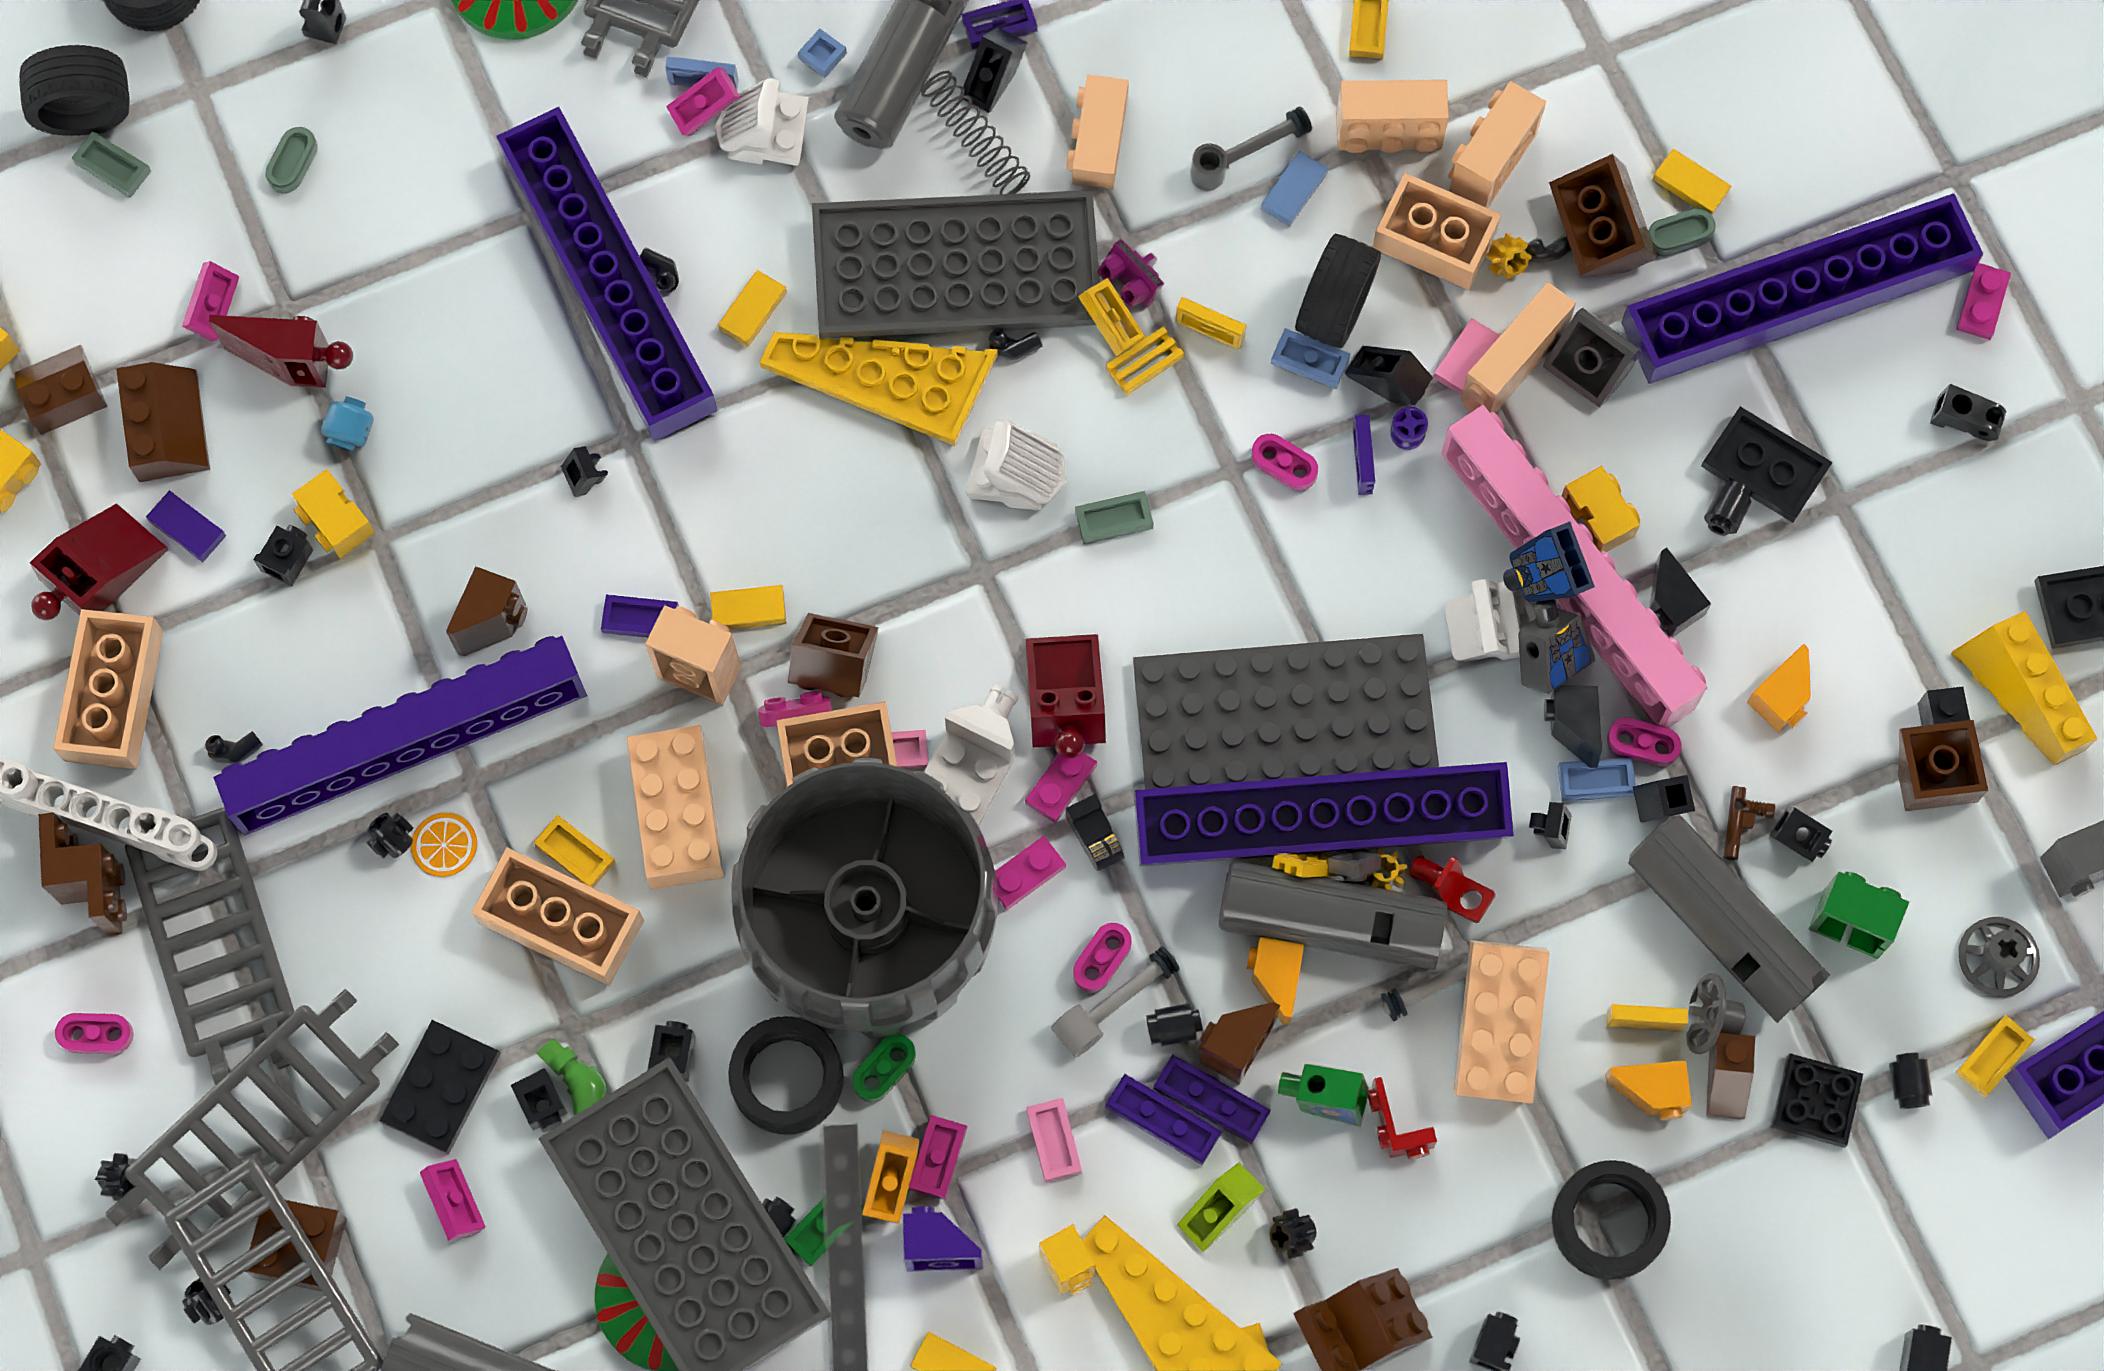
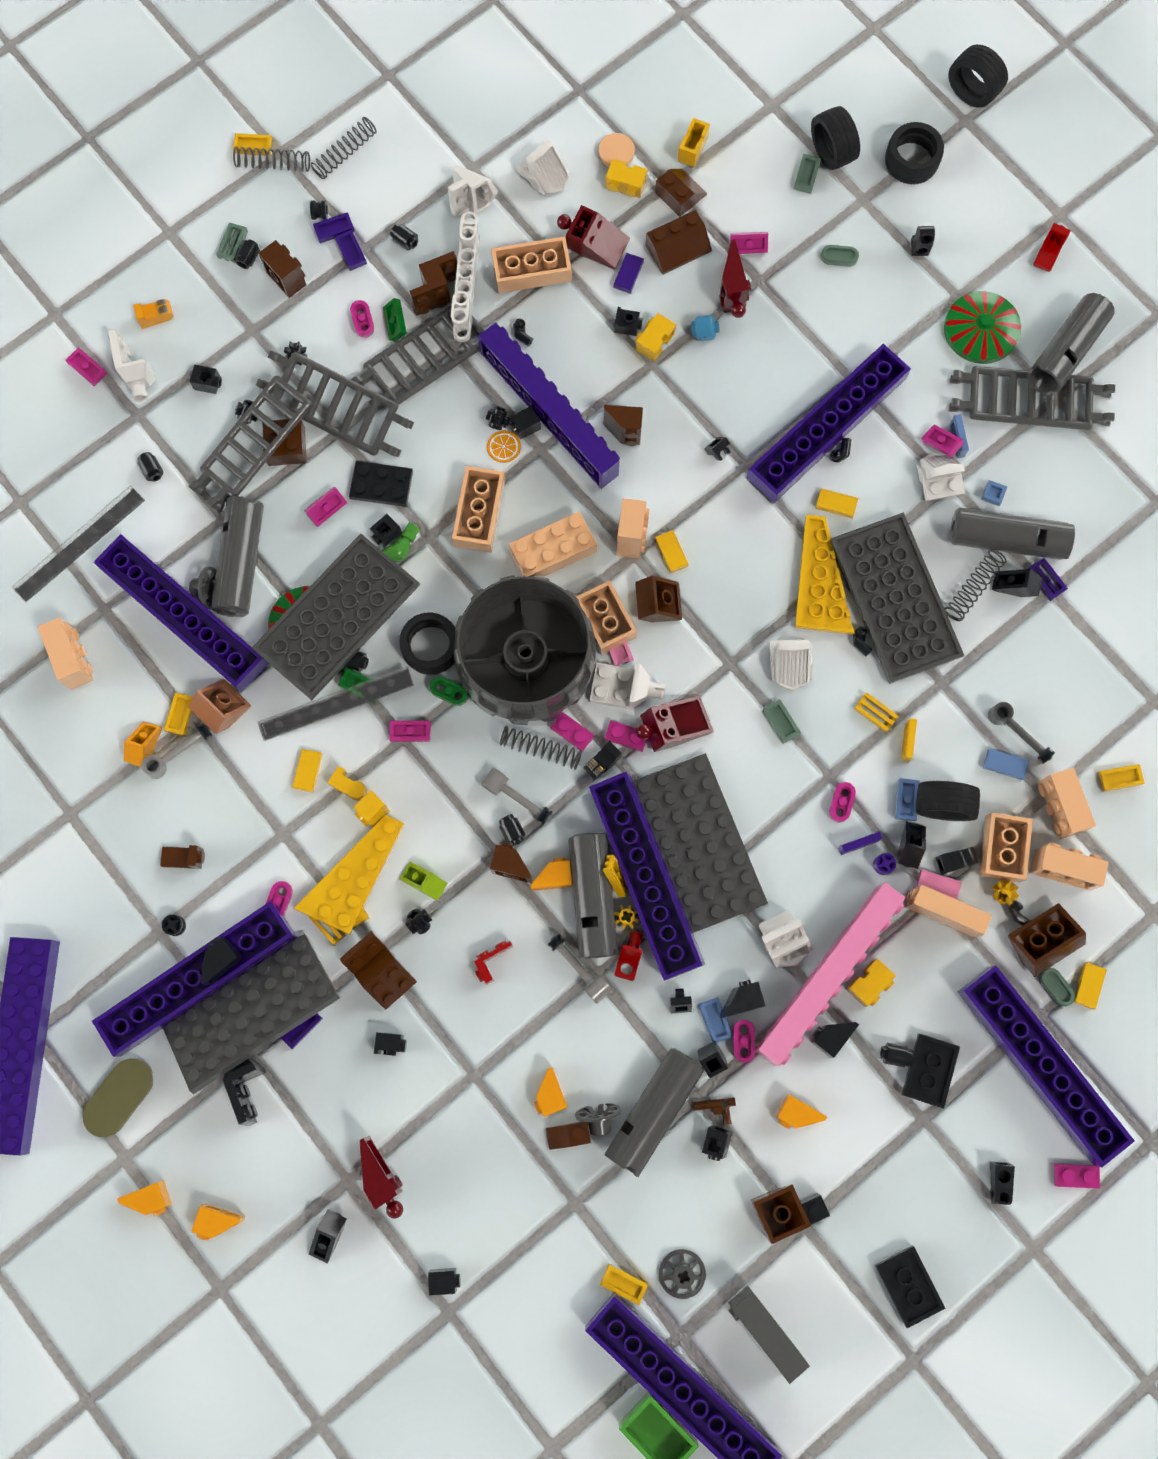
camera: 75 degrees right, 5 degrees up
(120, 972) = (394, 320): none -> green plate
(416, 789) = (525, 423): none -> black brick
(574, 852) = (517, 508): yellow tile -> none
(631, 615) = (649, 492): dark purple tile -> none
(671, 1035) = (425, 580): black brick -> none
(778, 708) = (620, 585): dark pink plate -> none
(891, 1176) = (393, 710): light orange slope -> none
(937, 1243) = (363, 741): dark purple slope -> none
(995, 989) = (577, 758): none -> dark grey piece
(1006, 1299) = (353, 789): none -> yellow leg
(1054, 1140) = (436, 787): bright pink tile -> none
(1098, 131) = (1000, 649): light nougat brick -> none
(1101, 958) = (538, 782): dark pink plate -> none
(1108, 319) = (891, 684): yellow tile -> none
(1134, 272) = (925, 691): magenta hips -> none
(1163, 1119) = (462, 839): dark purple tile -> none
(1212, 1099) = (480, 861): dark purple tile -> none
(1342, 1095) = (496, 925): green torso -> none
(1354, 864) = (622, 899): flat silver plate -> none
(1434, 315) = (956, 860): none -> black leg
(1501, 1021) = (559, 1000): light nougat brick -> none
(1549, 566) = (819, 959): torso -> none
(1552, 647) = (778, 975): dark grey torso -> none
(1592, 357) = (959, 954): dark grey brick -> none
(1643, 1187) = (444, 1088): black tyre -> none
(1647, 1017) = (587, 1081): yellow tile -> none
(1817, 1100) = (570, 1188): black tile -> none
(1870, 910) = (678, 1192): green piece -> none
(1911, 1081) = (594, 1238): black brick -> none
(2029, 686) = (845, 1255): yellow wedge -> none

